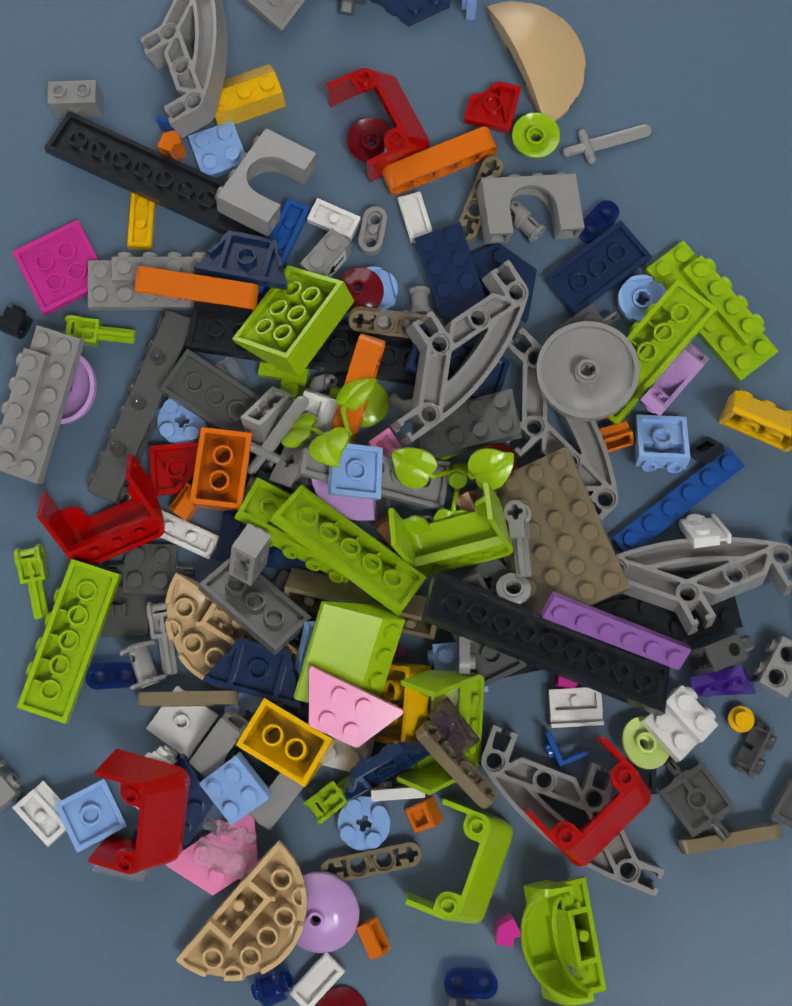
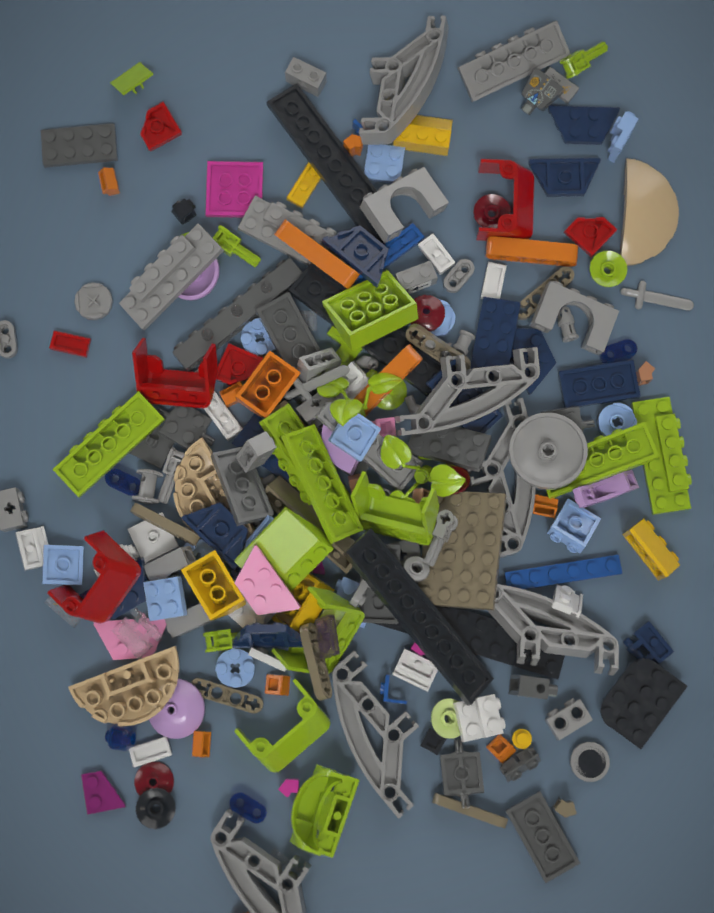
camera: 25 degrees right, 0 degrees up
(34, 572) = (108, 386): lime connector -> none
(428, 59) = (564, 176): none -> dark blue wing
(585, 844) = (374, 757): red windscreen -> none
(615, 630) = (469, 634): medium lavender plate -> none
(643, 227) = (644, 374): none -> nougat piece
(706, 450) = (601, 548): black plate -> none
(723, 682) = (524, 708): dark purple wing -> none
(723, 744) = (501, 748): none -> orange slope

